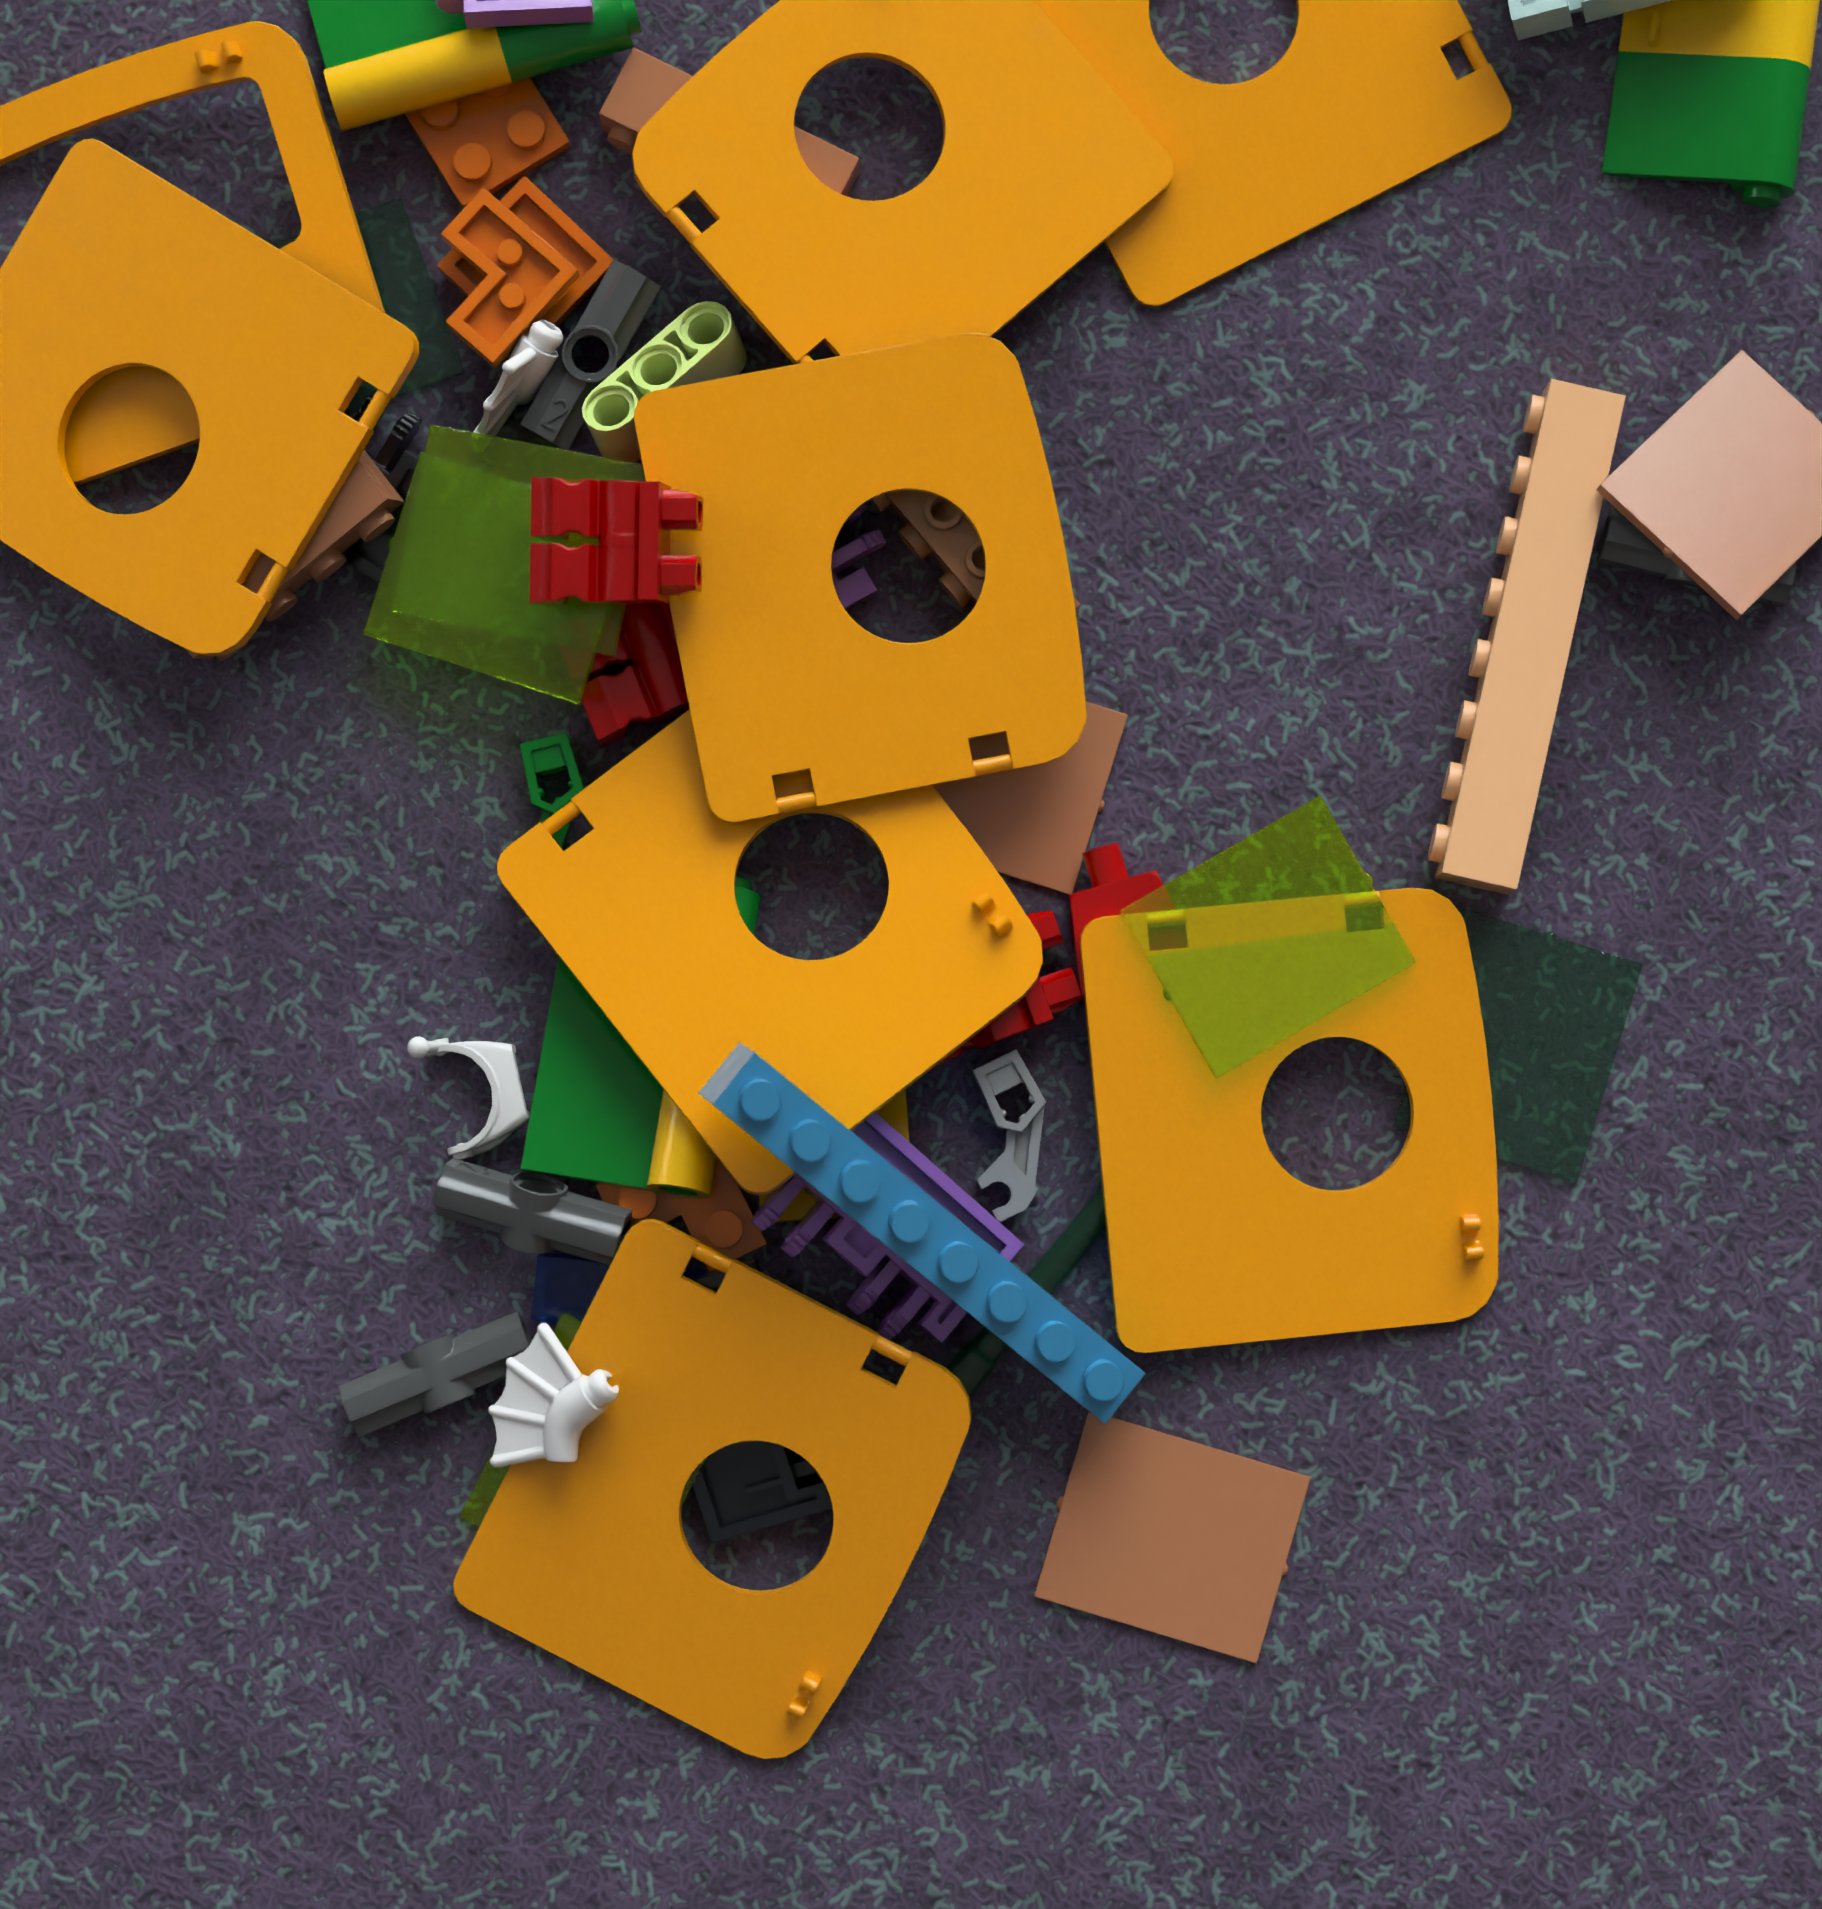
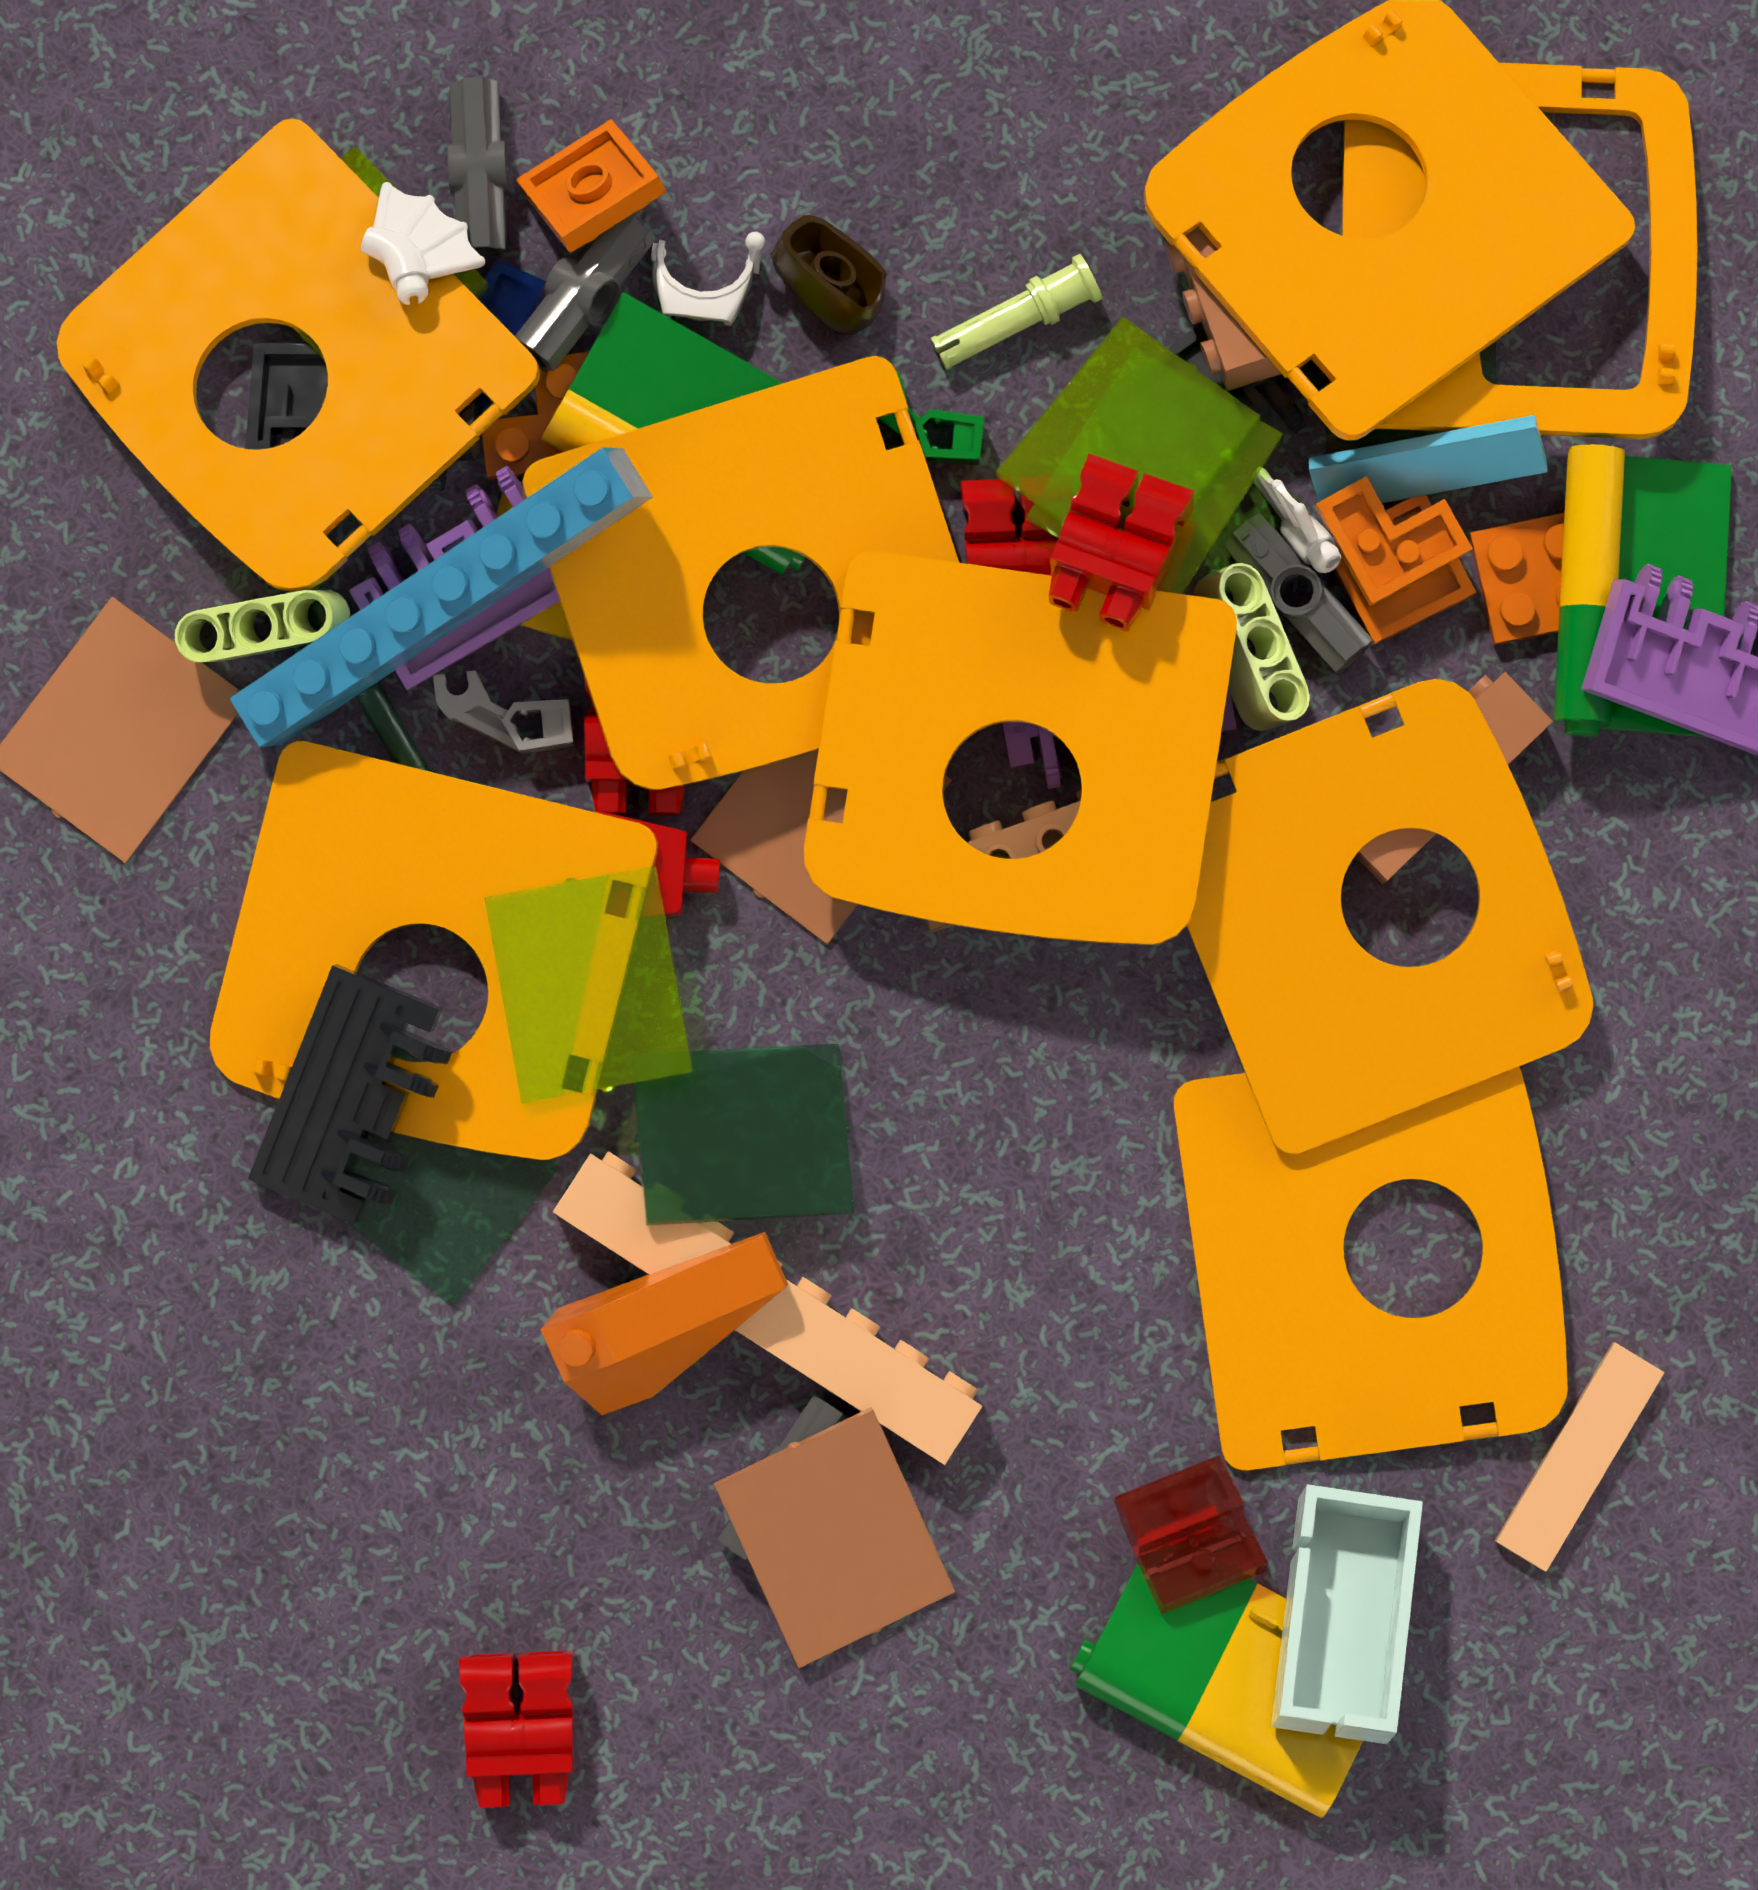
camera: 105 degrees right, 0 degrees up
(374, 730) = (1041, 301): none -> yellowish green pin
(404, 259) = (1436, 461): none -> medium azure tile
(418, 1243) = (591, 185): none -> orange plate
(424, 958) = (830, 274): none -> dark brown piece
(1030, 1444) = (236, 625): none -> yellowish green beam
(1363, 720) = (745, 1137): none -> clear green piece
(1464, 1151) = (342, 1092): none -> black hinge
(1592, 739) = (652, 1329): none -> orange wedge
(1597, 131) = (1190, 1534): none -> clear red slope

